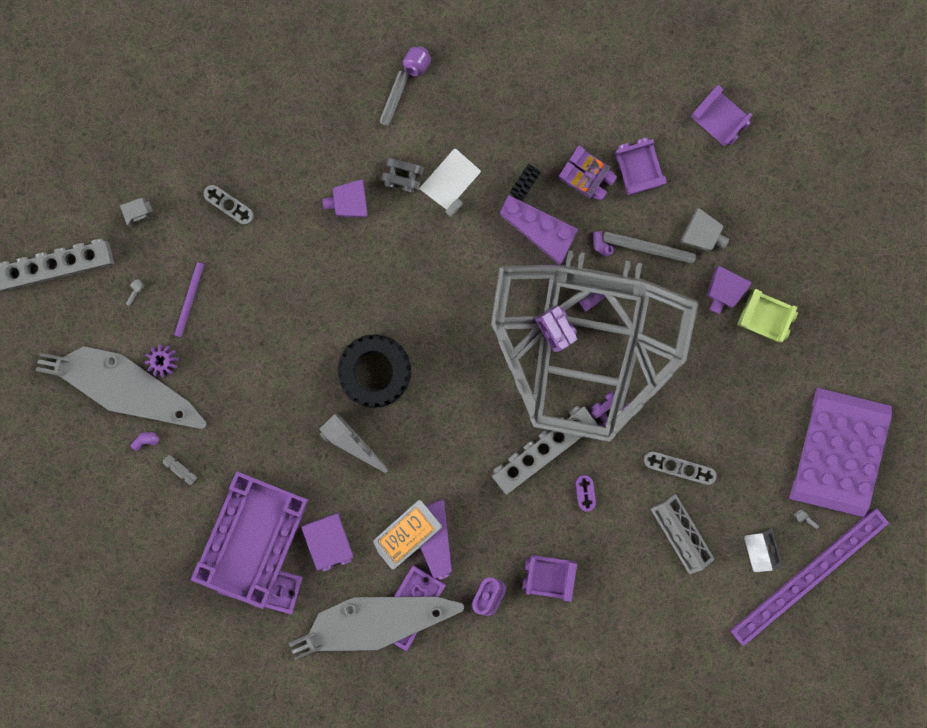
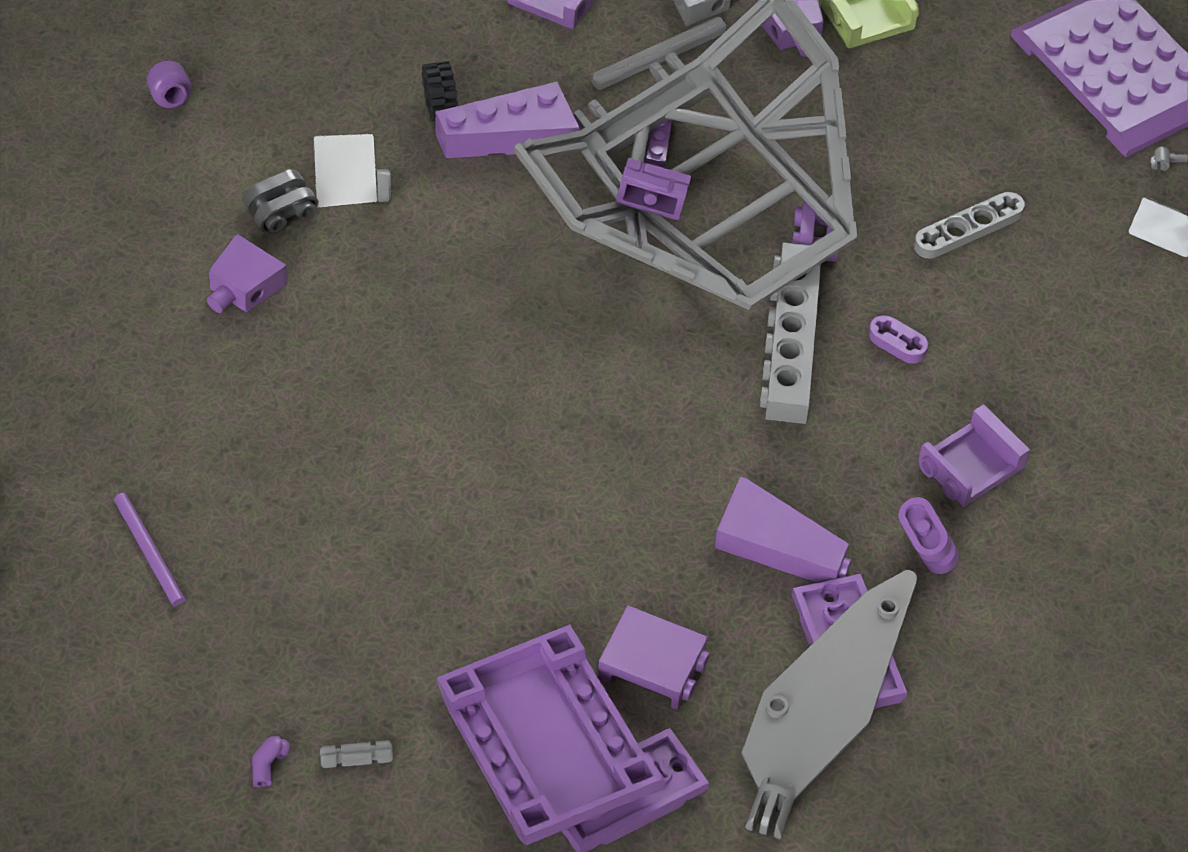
camera: 50 degrees left, 35 degrees down
(121, 386) = (159, 722): light grey wing -> none
(136, 285) = (59, 589): light grey hand -> none
(154, 359) = (176, 648): medium lavender gear -> none
(243, 208) = (79, 396): light grey beam -> none
(343, 436) = (537, 517): light grey wedge -> none
(348, 371) = (480, 449): black tyre -> none
(394, 97) = (181, 143): light grey axle -> none
(406, 534) = (742, 556): sticker -> none
(589, 181) = (502, 38): medium lavender hips -> none
(600, 246) = (603, 94): medium lavender arm -> none
(681, 537) = (1061, 286): light grey fence -> none

